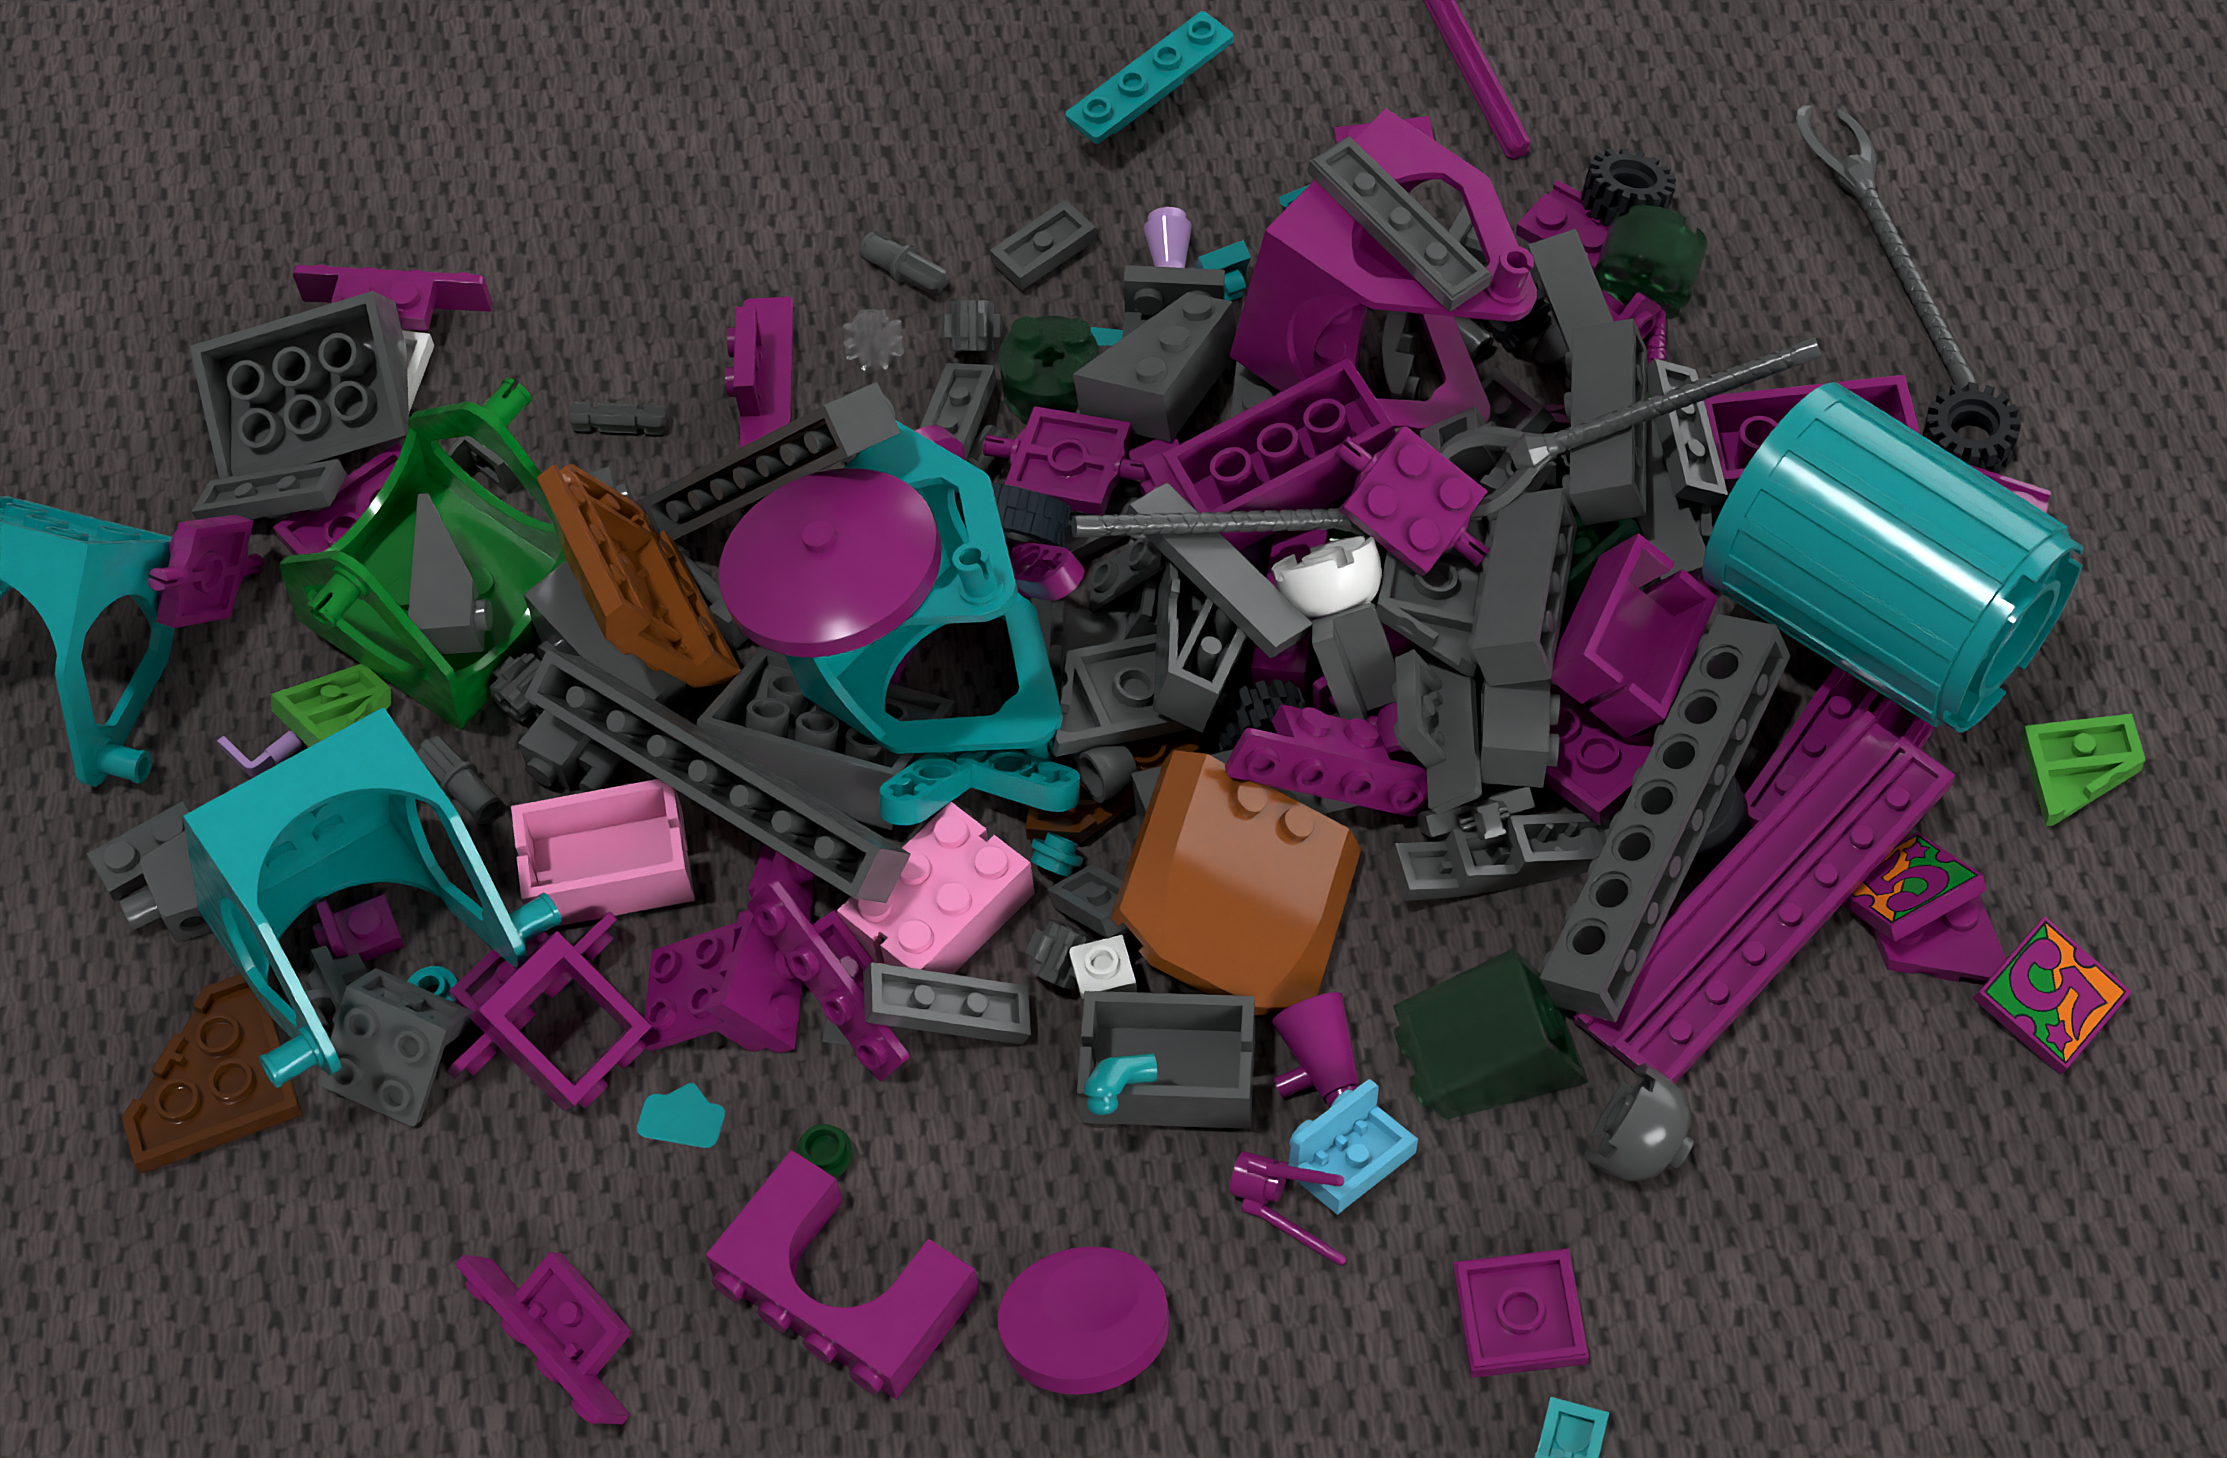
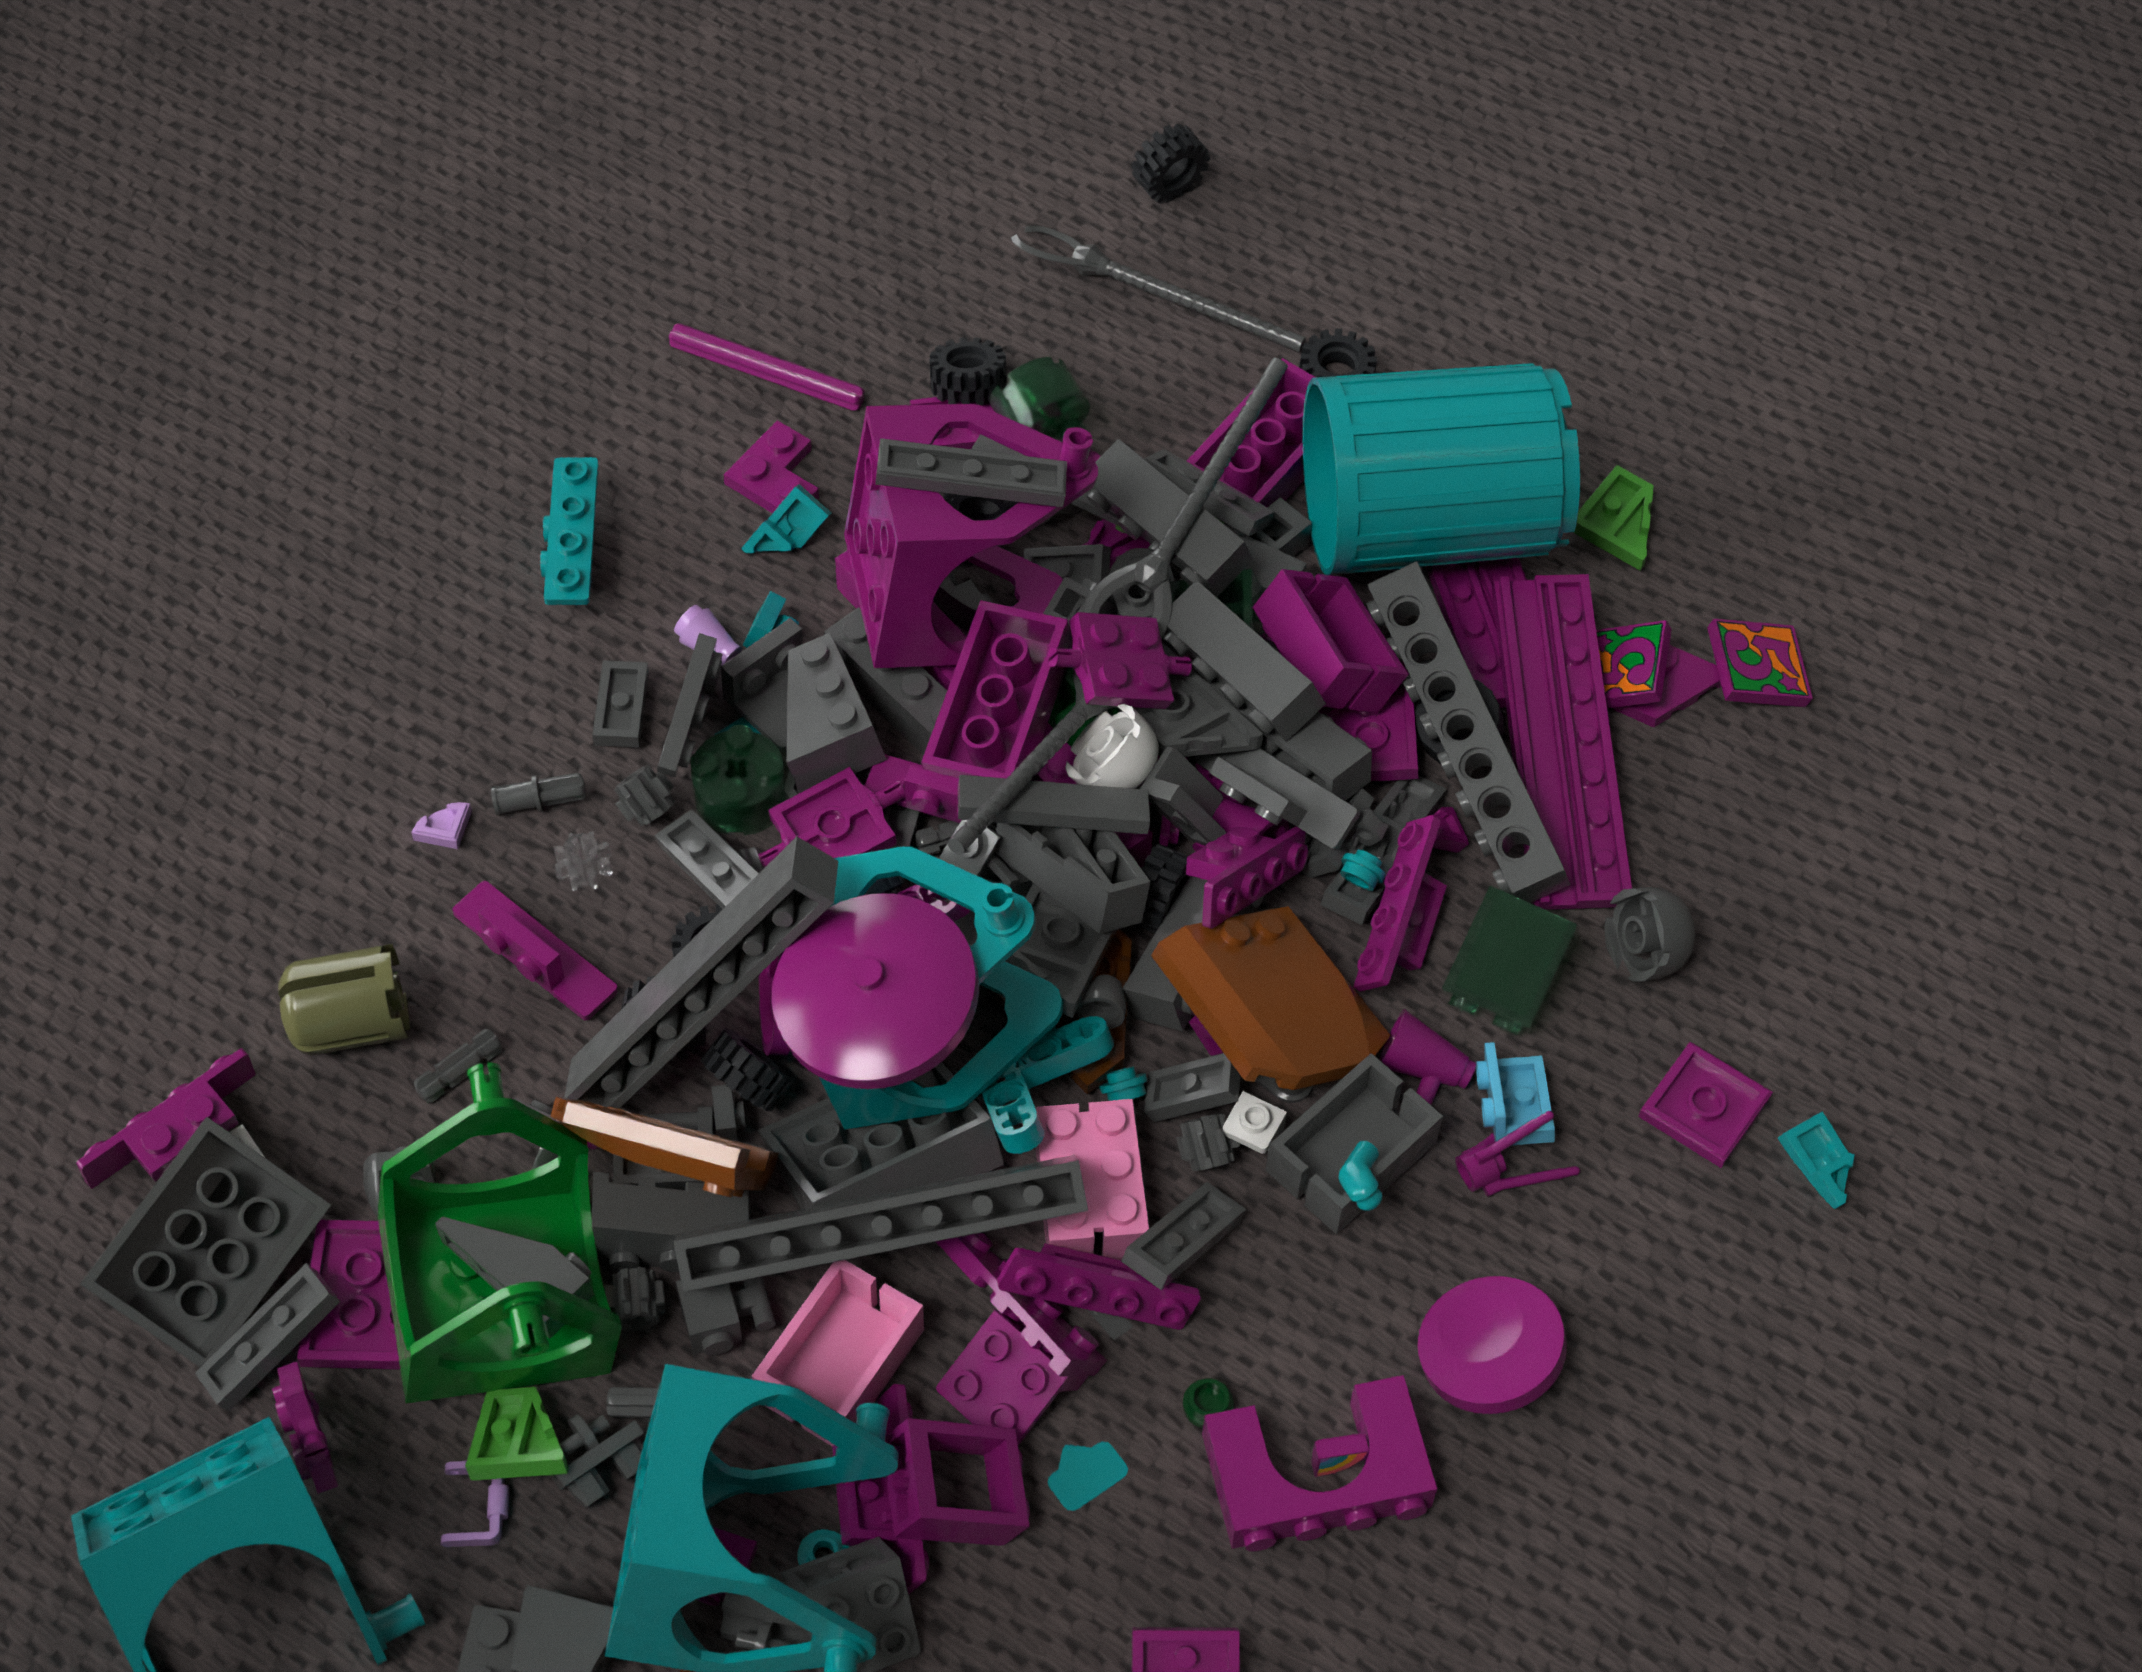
camera: 55 degrees left, 0 degrees up
(587, 300) = (343, 1001): none -> olive cylinder
(817, 237) = (444, 826): none -> lavender tile
(859, 1278) = (1338, 1453): none -> magenta tile
(1068, 272) = (691, 705): none -> dark grey plate
(1442, 851) = (1362, 869): none -> teal plate
(1447, 922) = (1406, 909): none -> magenta bracket
(1564, 886) = (1450, 832): none -> magenta tile
(2027, 122) = (1170, 163): none -> black tyre

